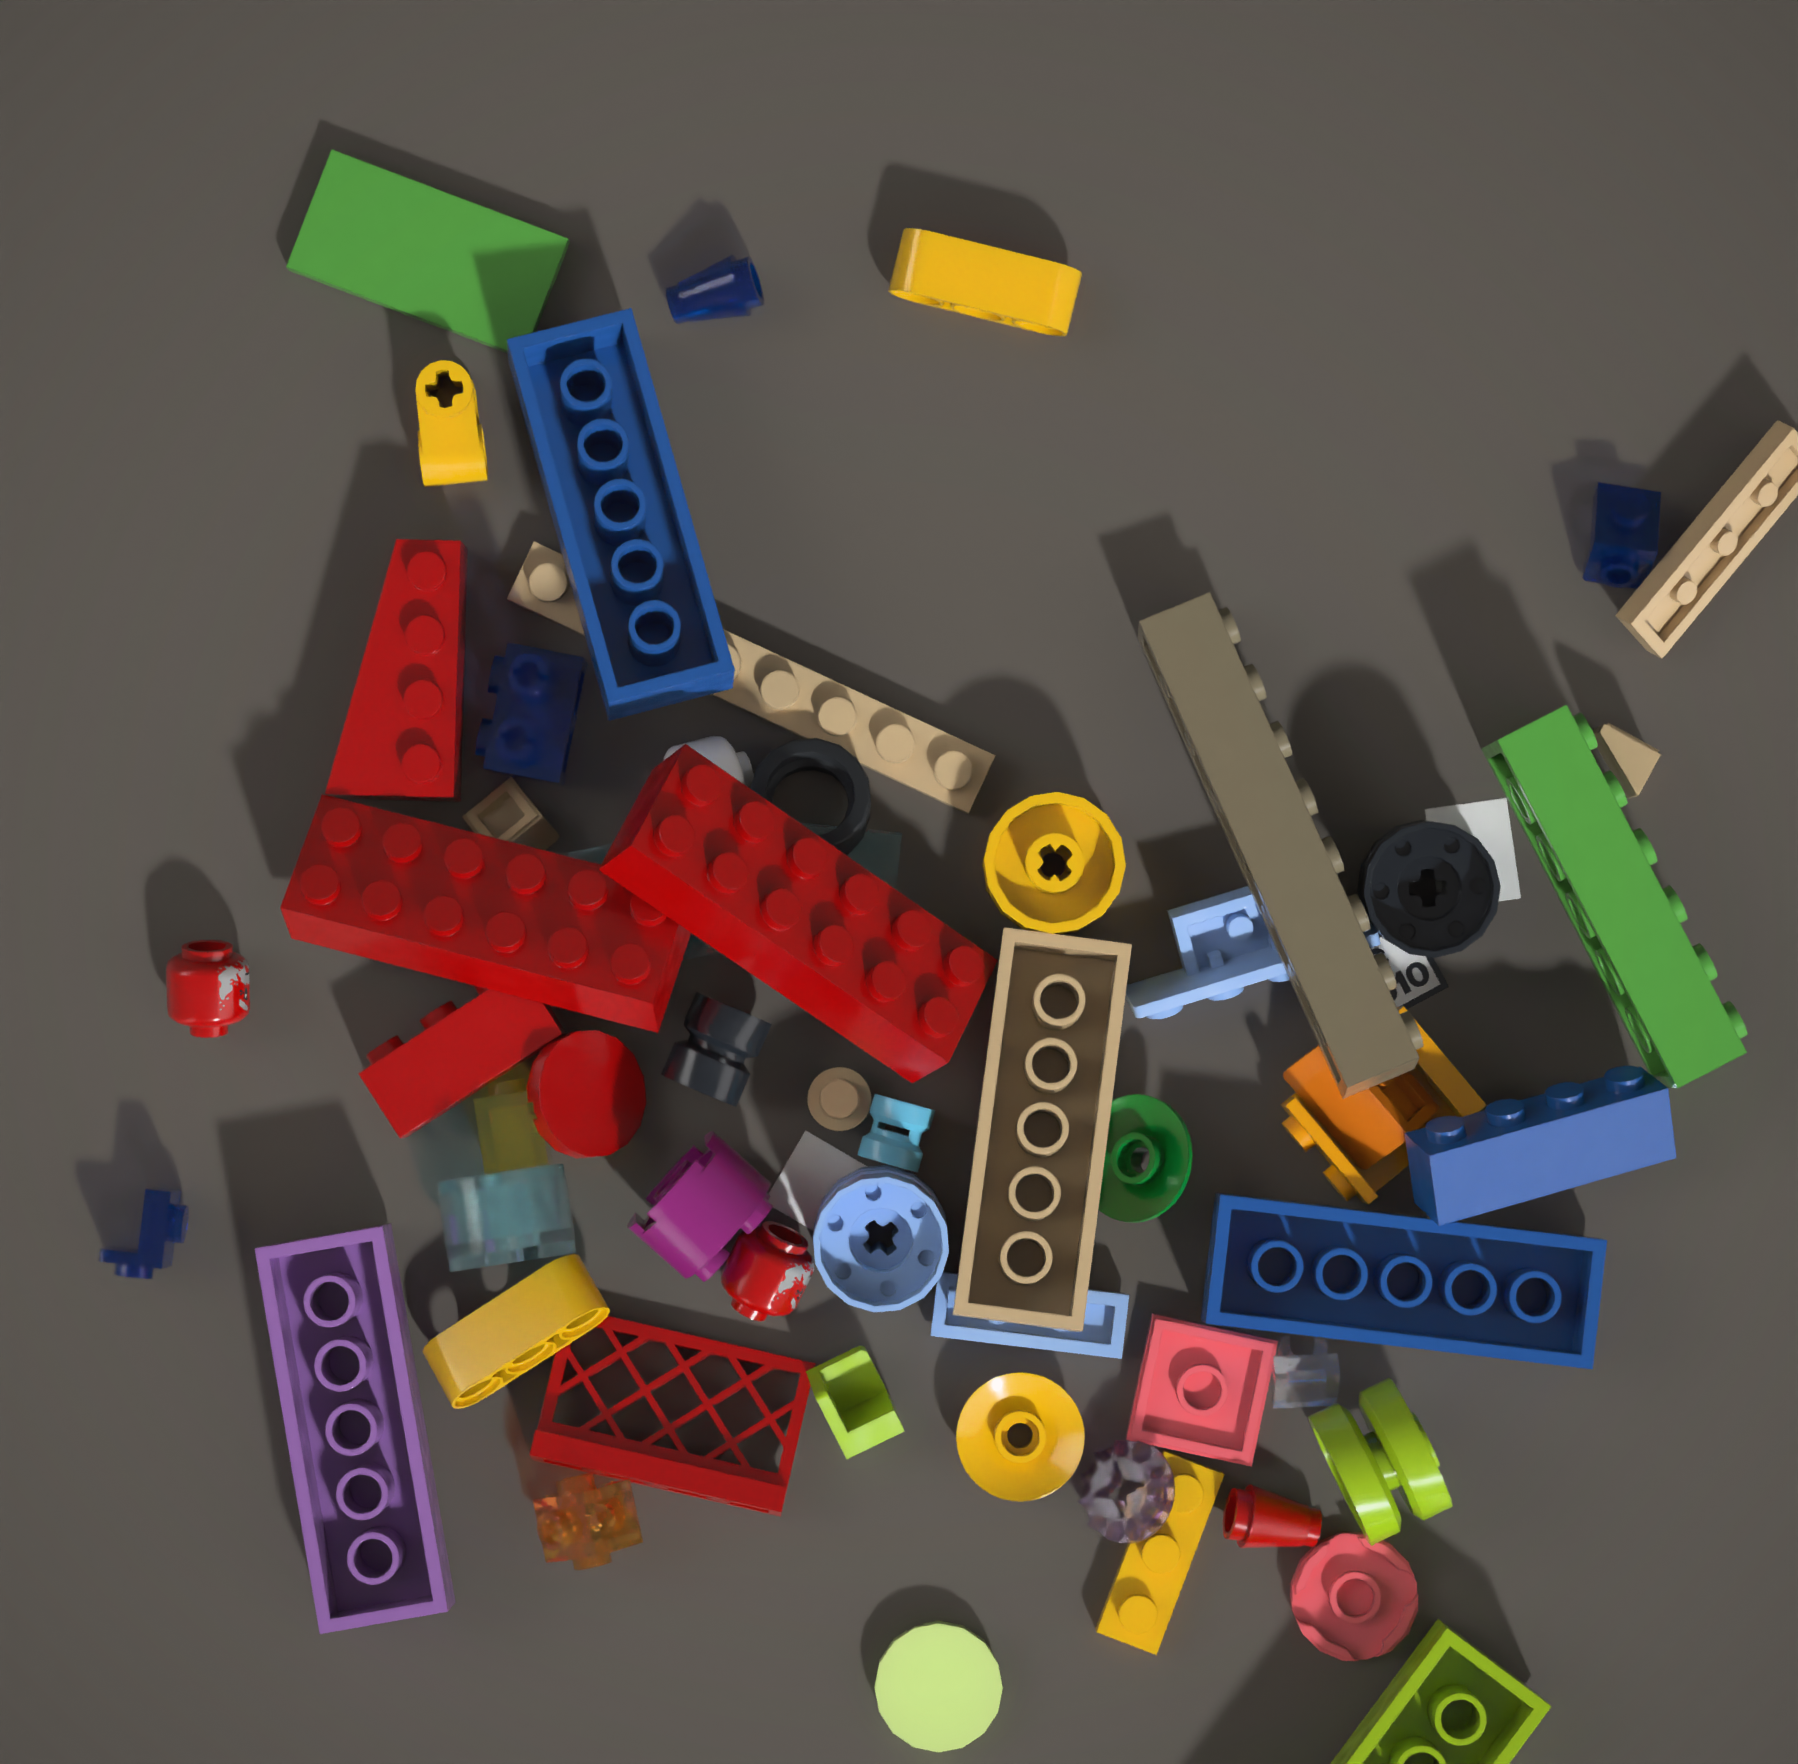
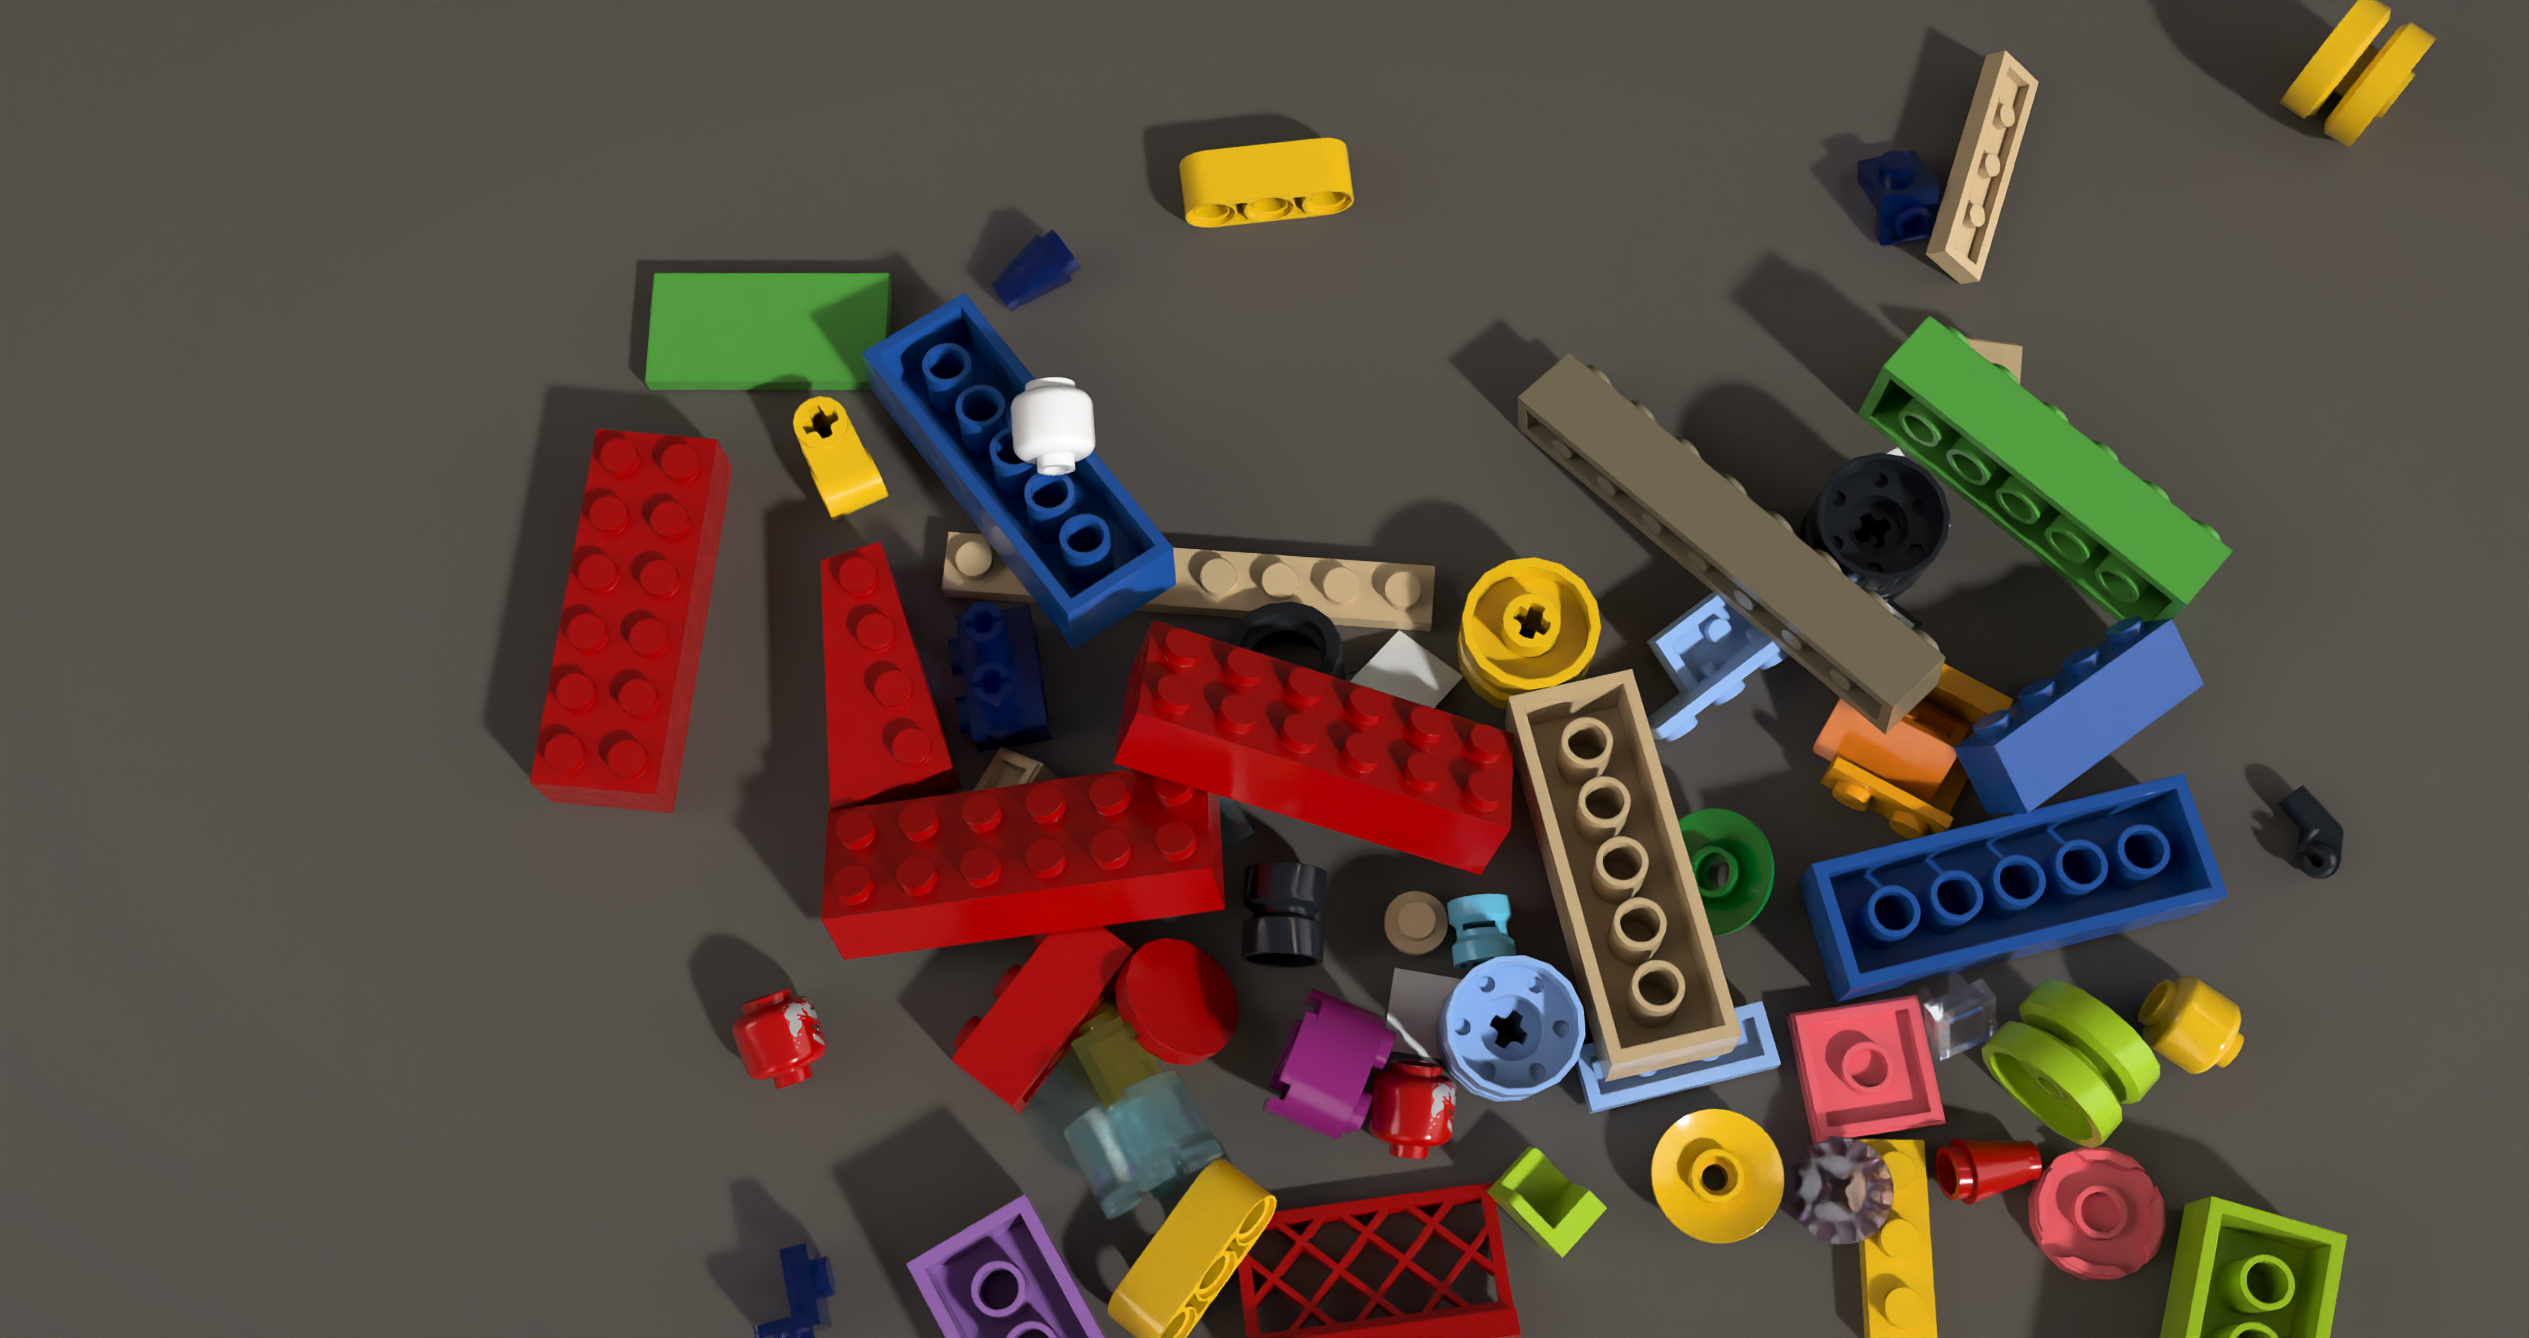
camera: 20 degrees left, 15 degrees down
(198, 520) = (633, 622): none -> red brick
(662, 504) = (1052, 425): none -> white head
(922, 857) = (1408, 672): none -> white sticker
(1514, 1465) = (2191, 1024): none -> yellow head
(1726, 1334) = (2319, 834): none -> black arm

